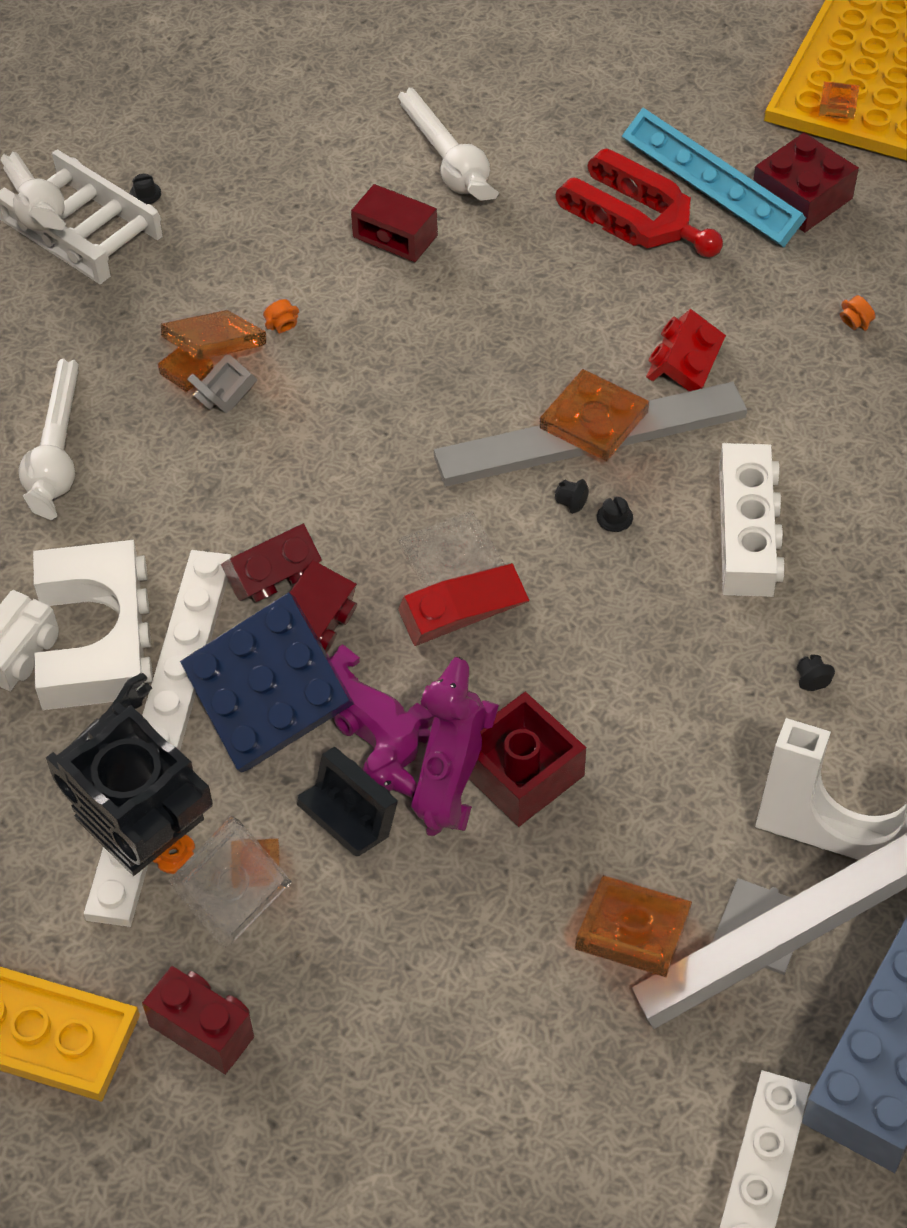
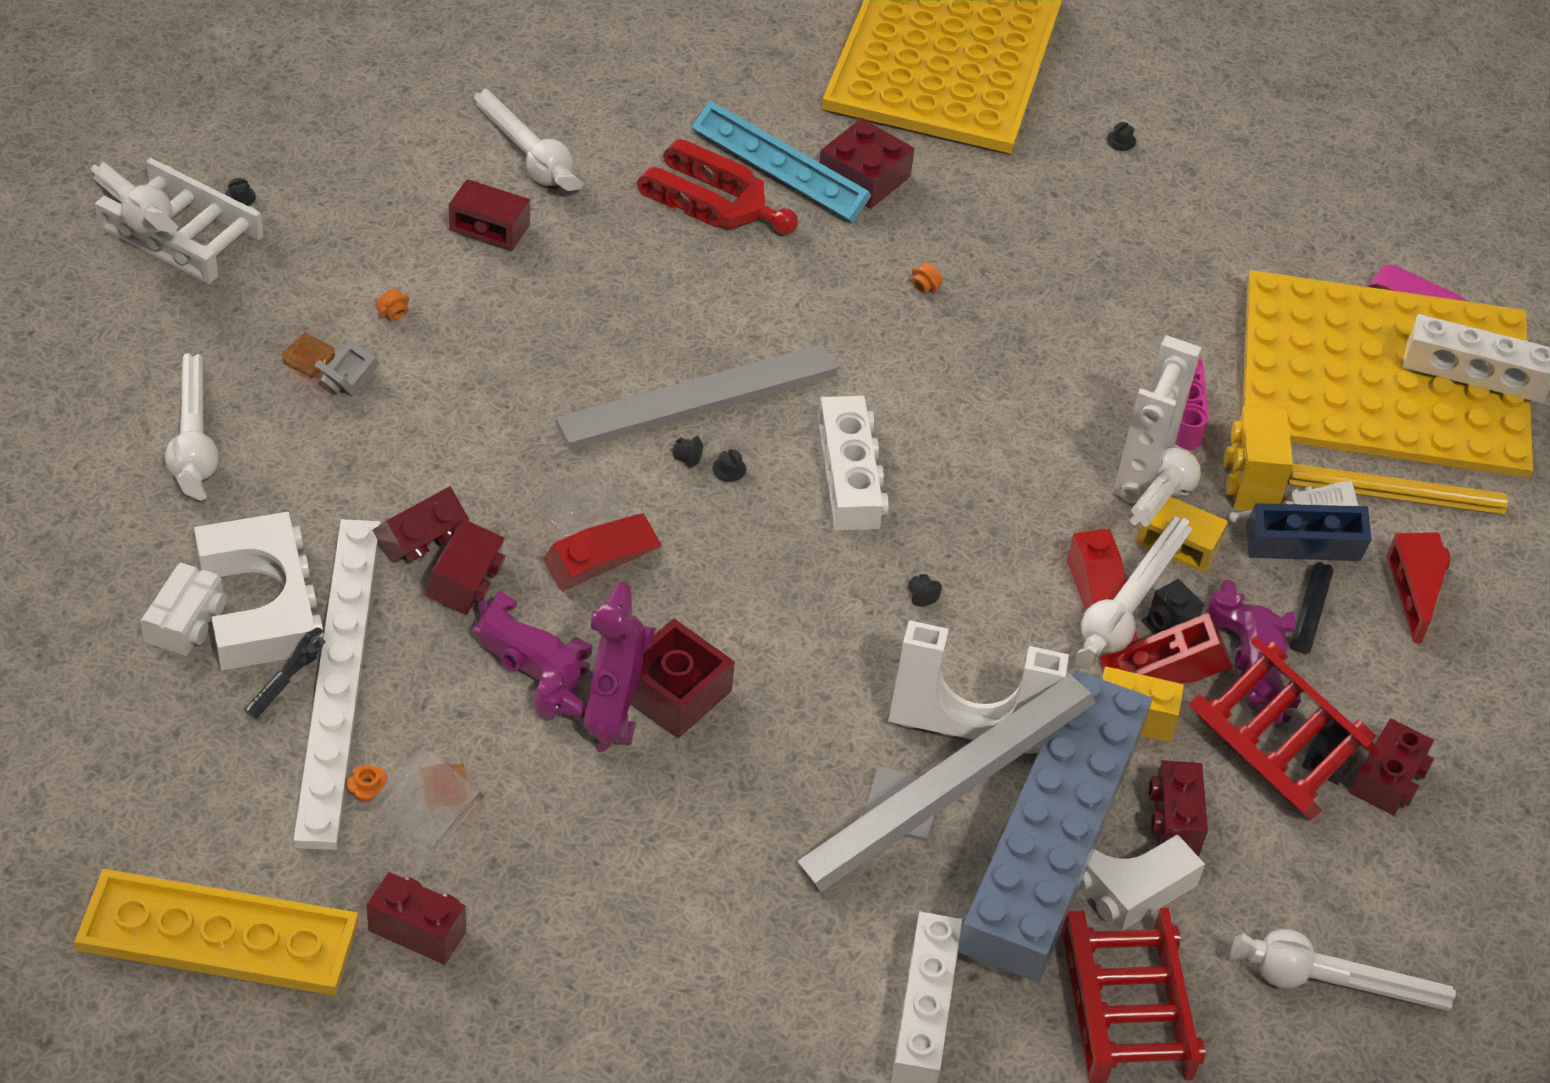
camera: 15 degrees left, 5 degrees down
(130, 788) = (331, 721): black piece -> none
(213, 334) = (332, 323): clear orange tile -> none
(266, 682) = (434, 628): dark blue plate -> none
(349, 803) = (525, 726): black bracket -> none
(594, 415) = (700, 379): clear orange plate -> none
(633, 926) = (793, 809): clear orange plate -> none
(686, 351) = (776, 318): red bracket -> none
(839, 100) = (889, 88): clear orange plate -> none

